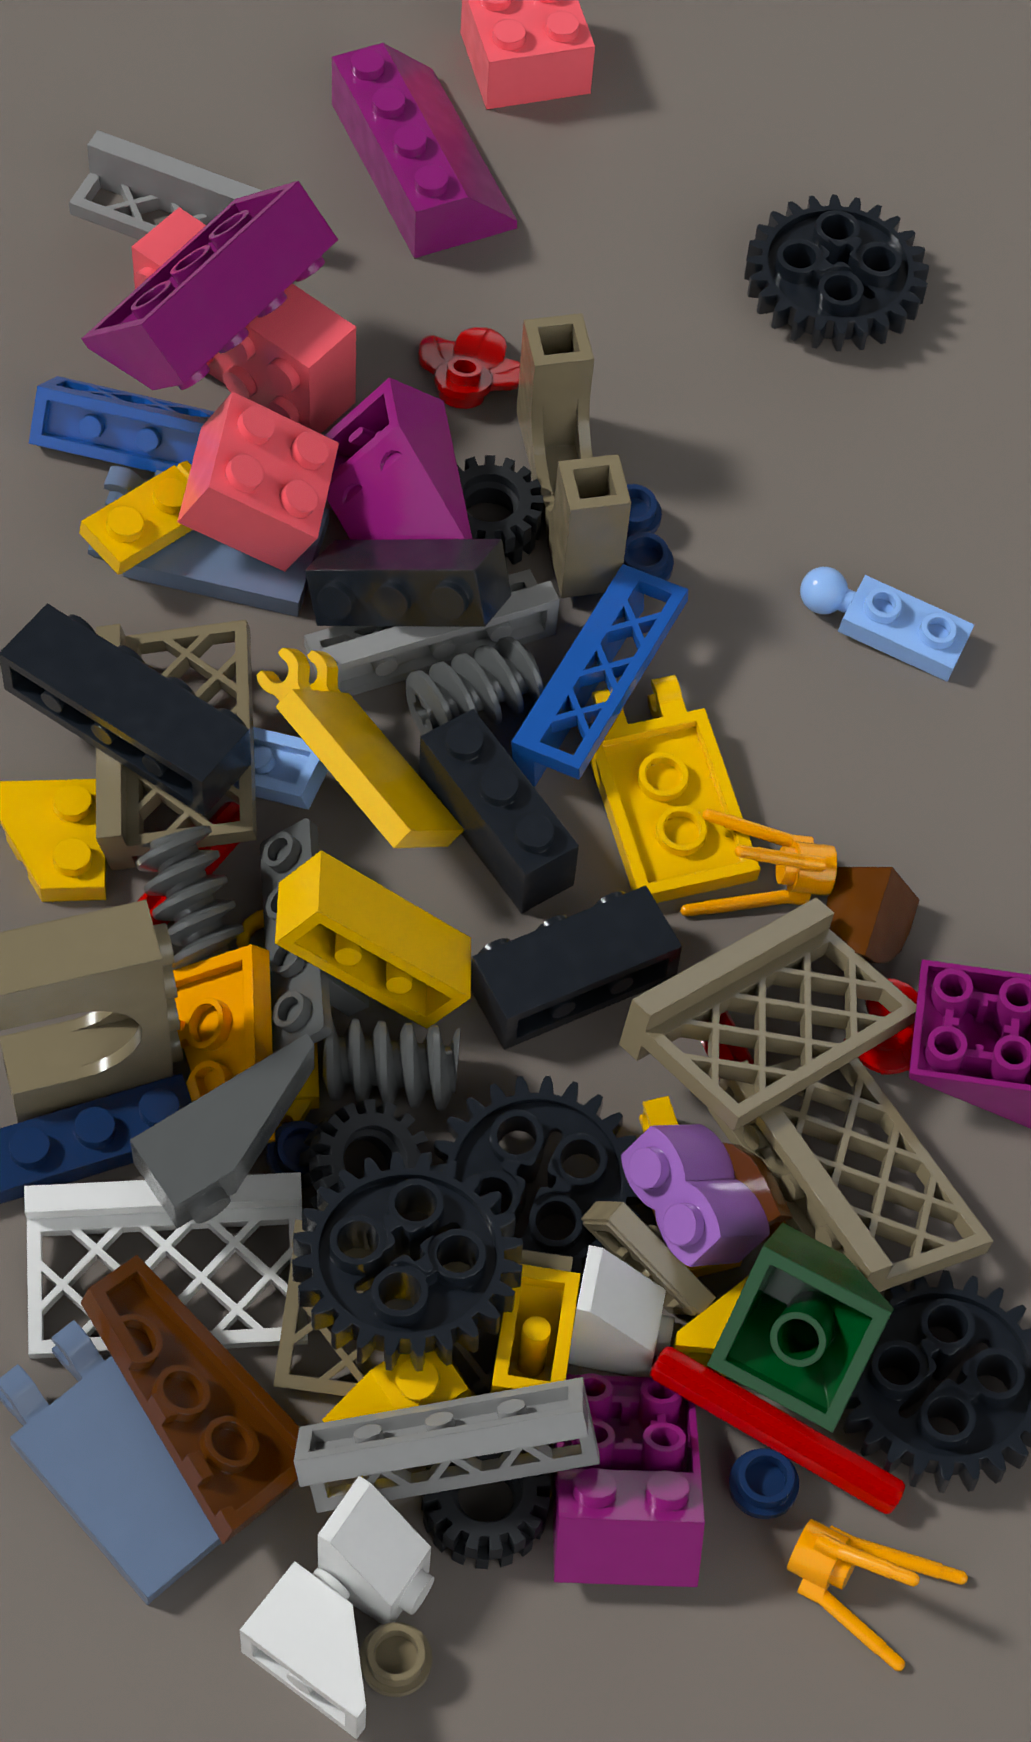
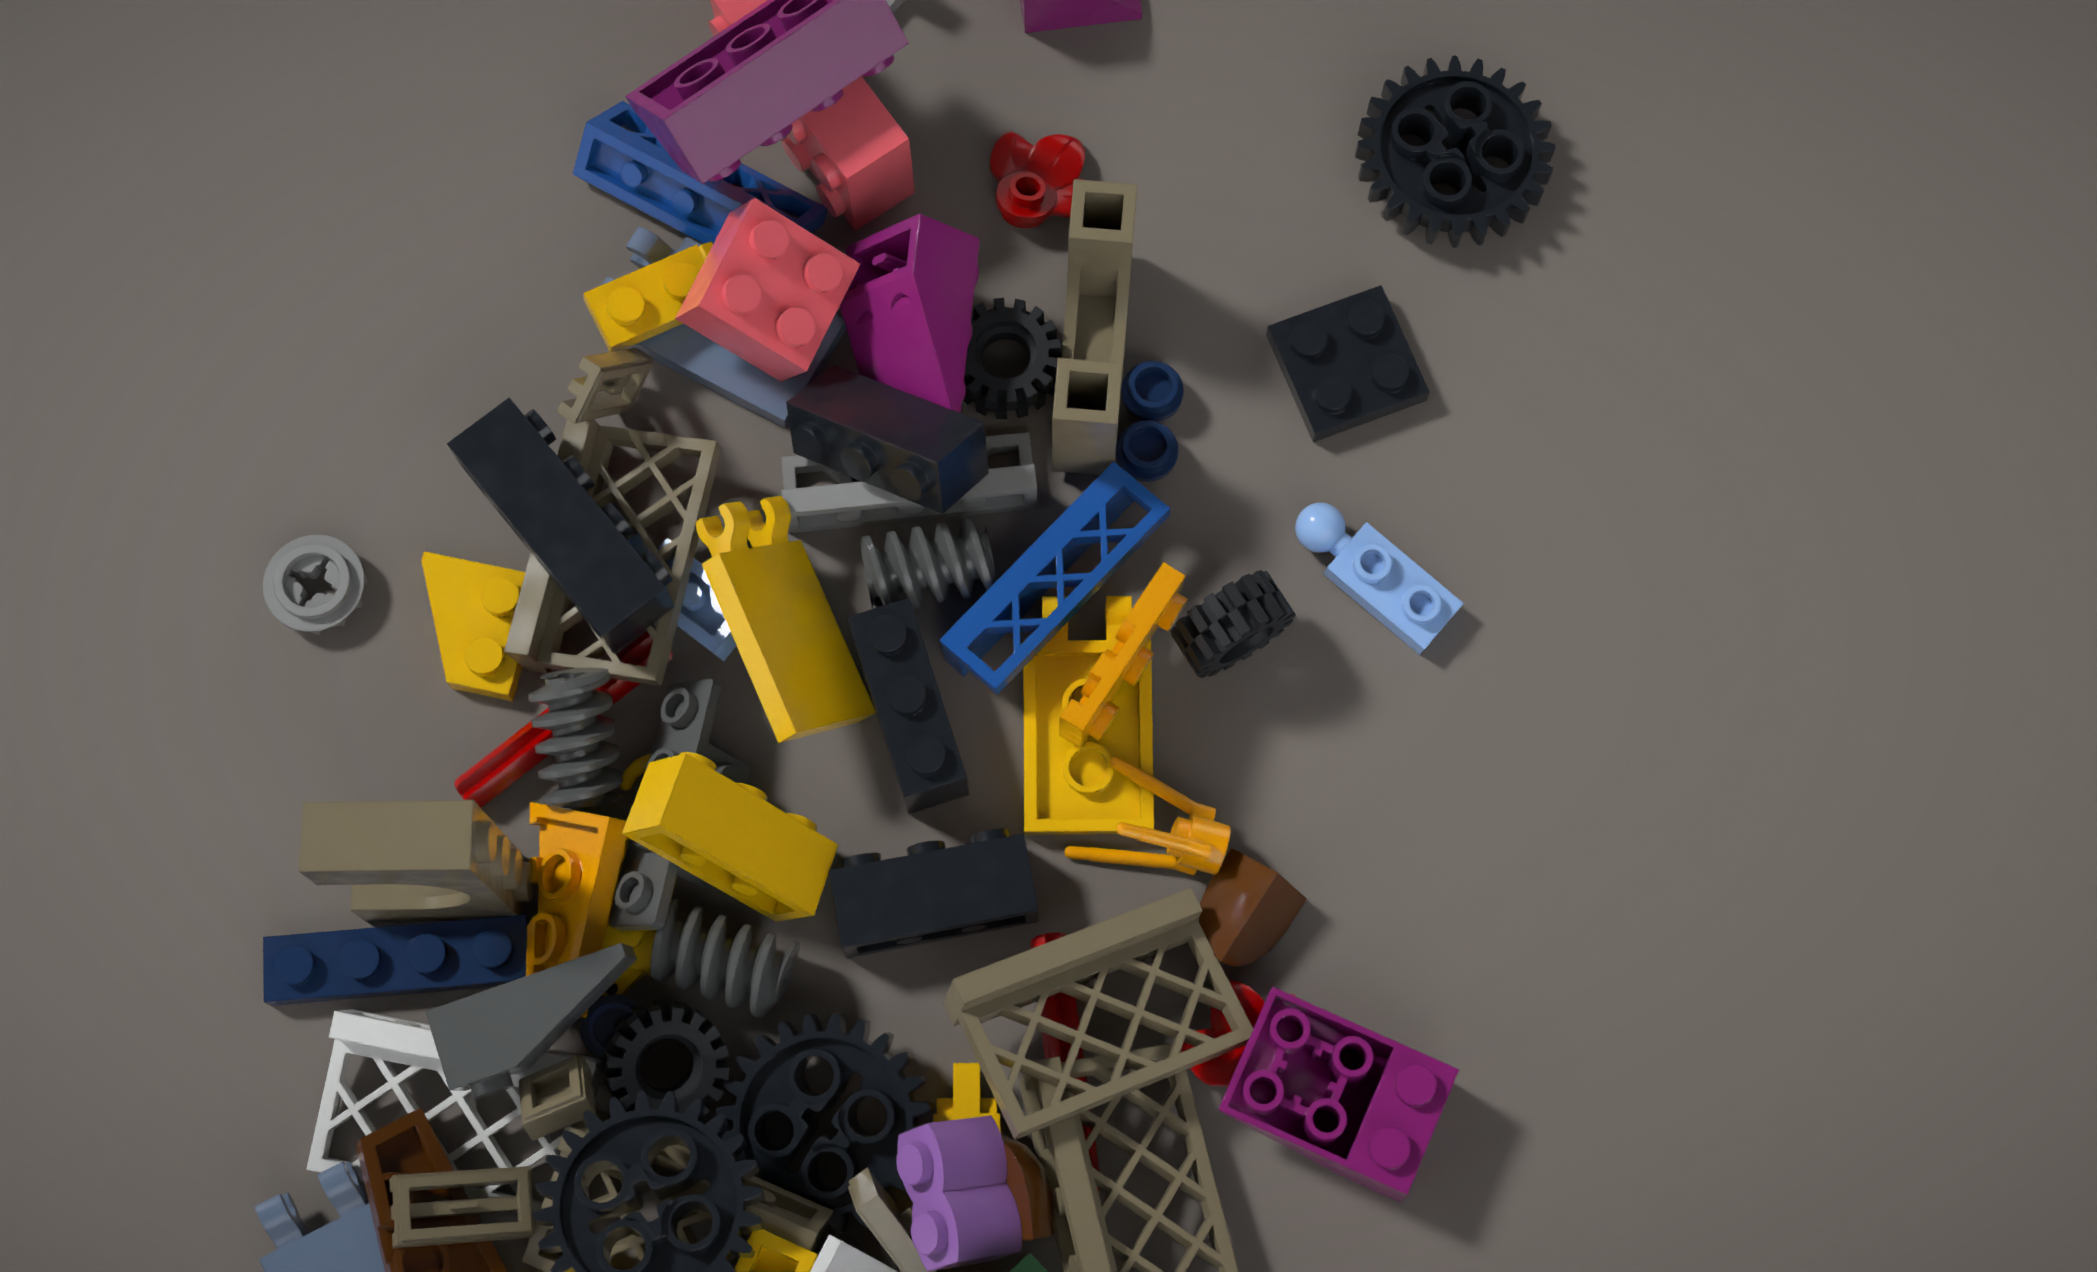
camera: 20 degrees right, 15 degrees up
(121, 593) = (606, 373): none -> dark tan tile
(210, 1357) = (403, 1211): none -> dark tan tile
(275, 1200) = (556, 1097): none -> dark tan tile
(690, 718) = (1127, 661): none -> light orange wing
(776, 674) = (1232, 623): none -> black tyre
(799, 459) = (1347, 363): none -> black plate

